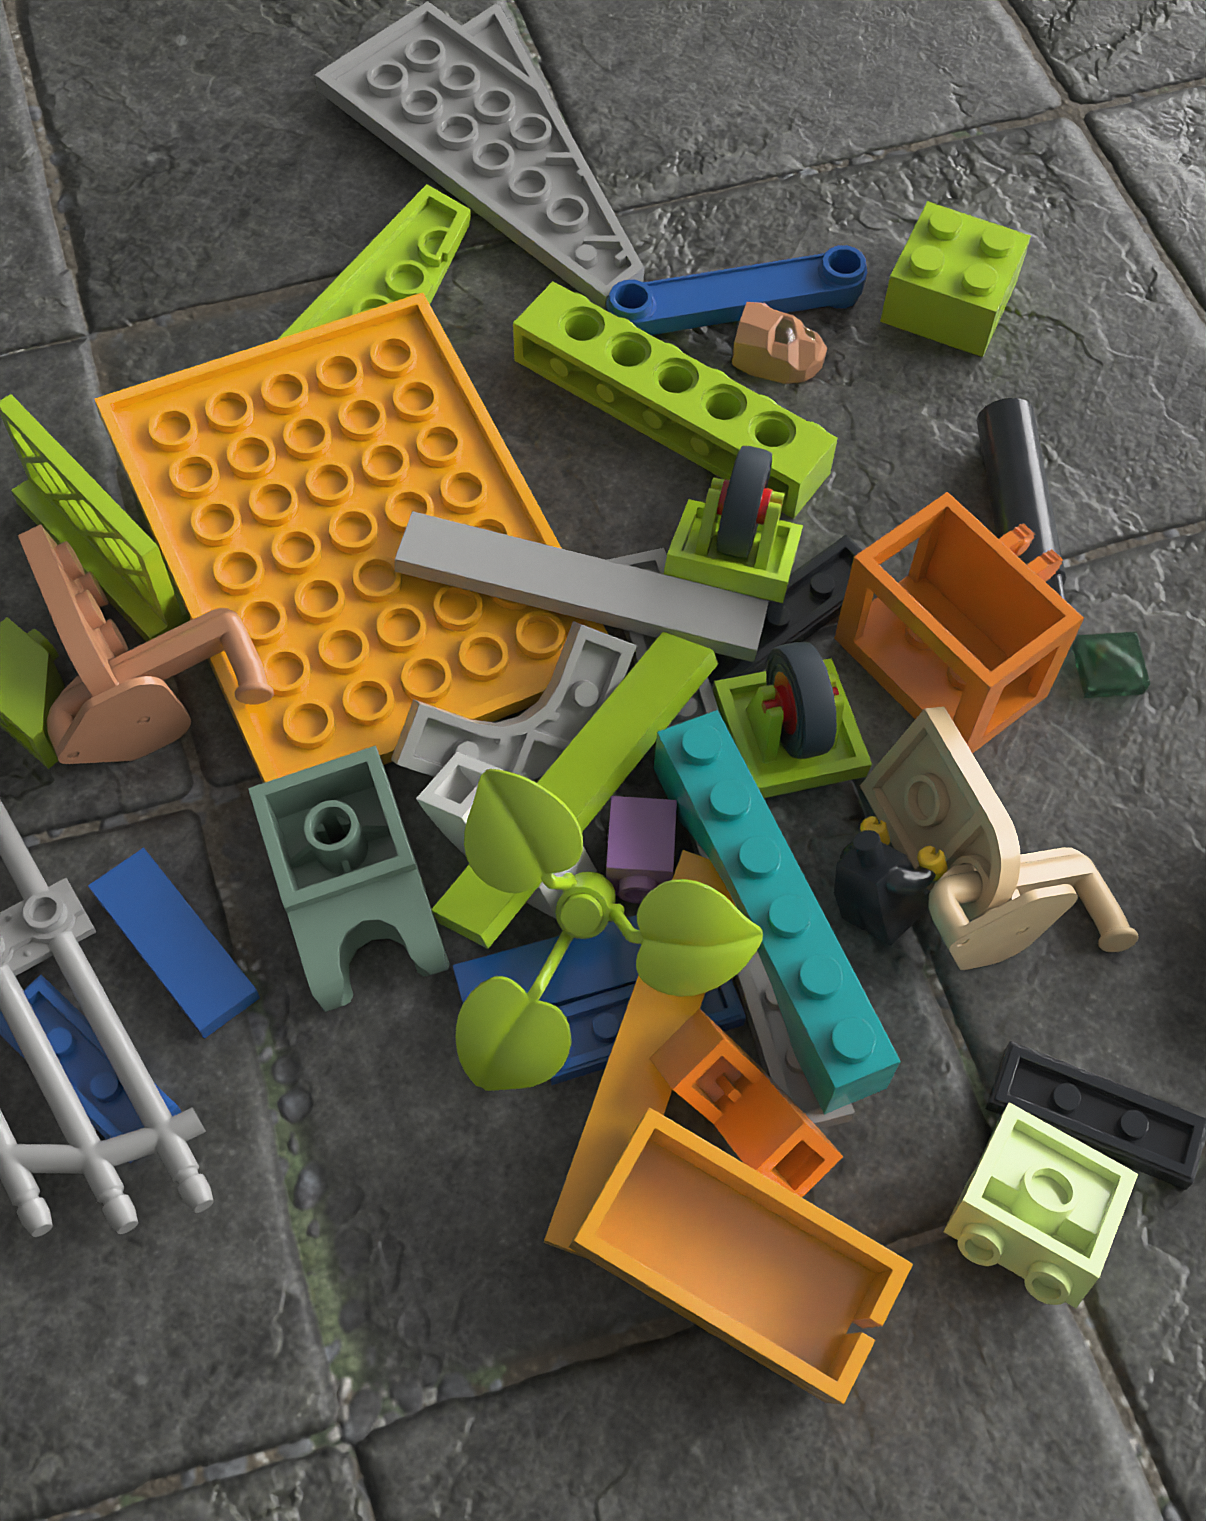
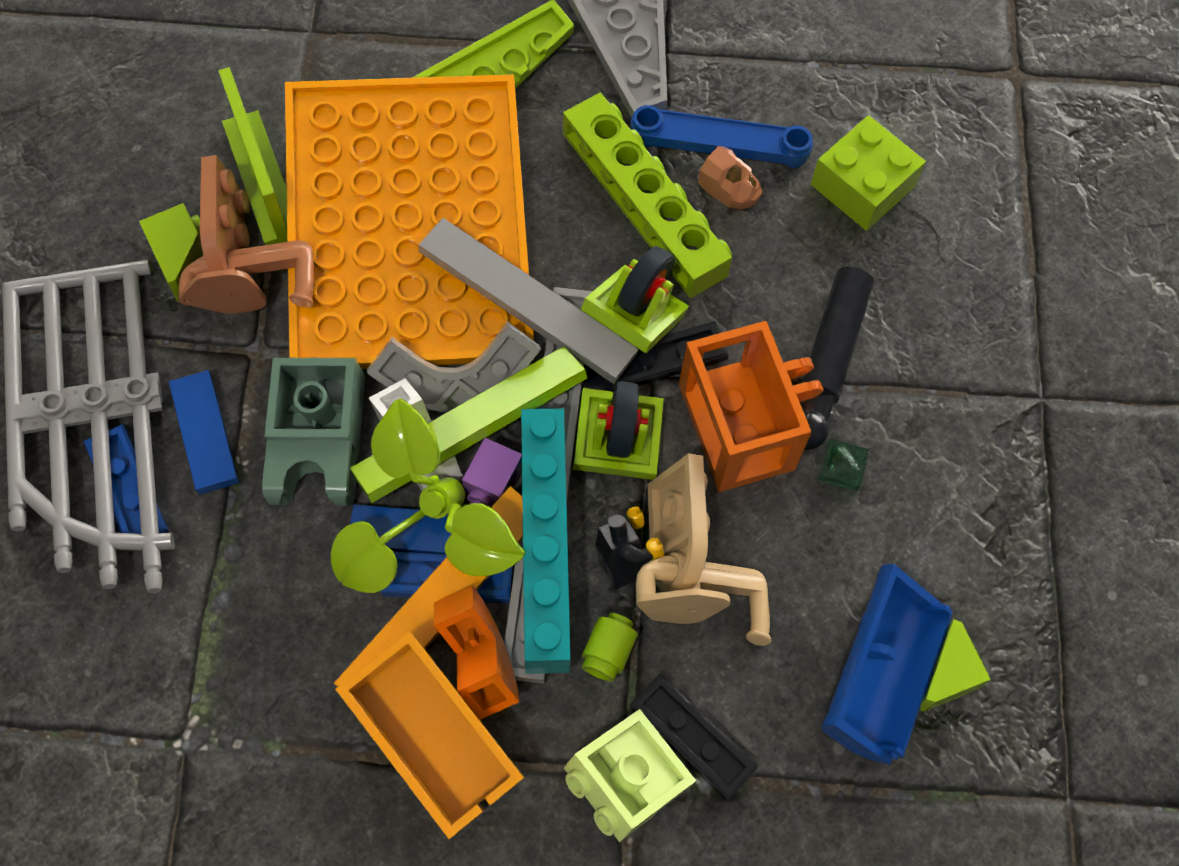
camera: 20 degrees right, 5 degrees up
(923, 1030) = (609, 647): none -> lime brick

